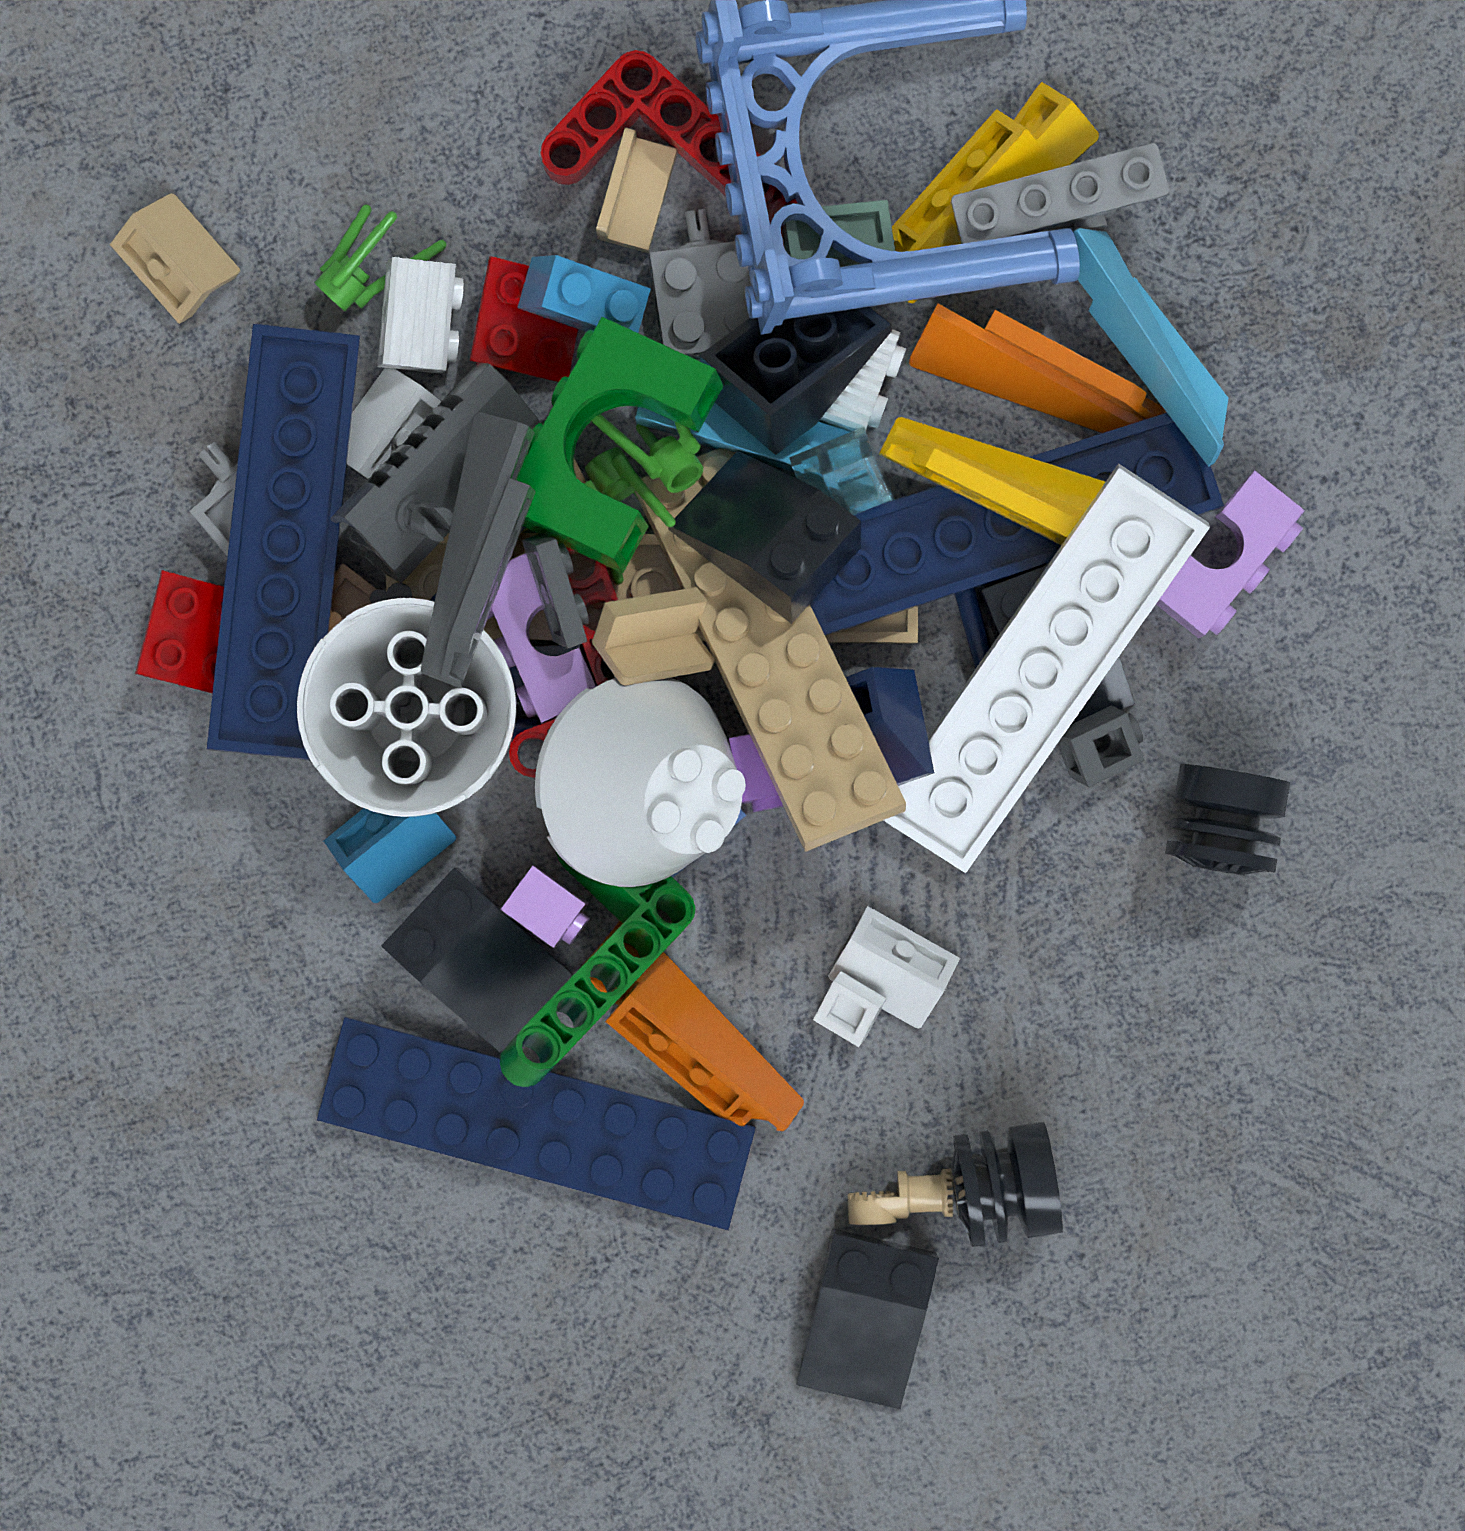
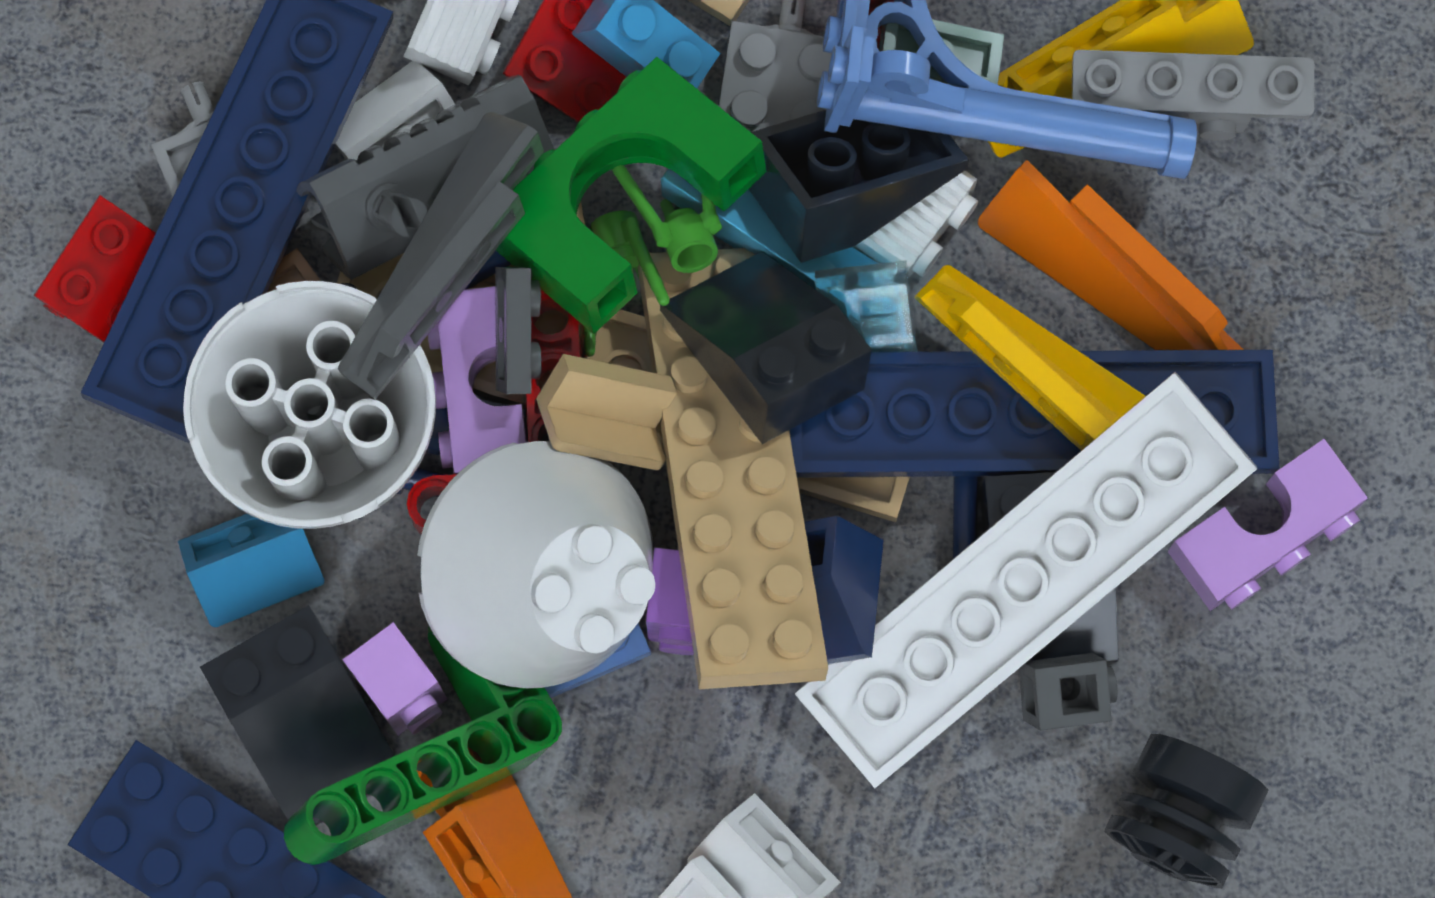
camera: 20 degrees right, 10 degrees down
(1152, 344) = (1247, 271): medium azure wedge -> none

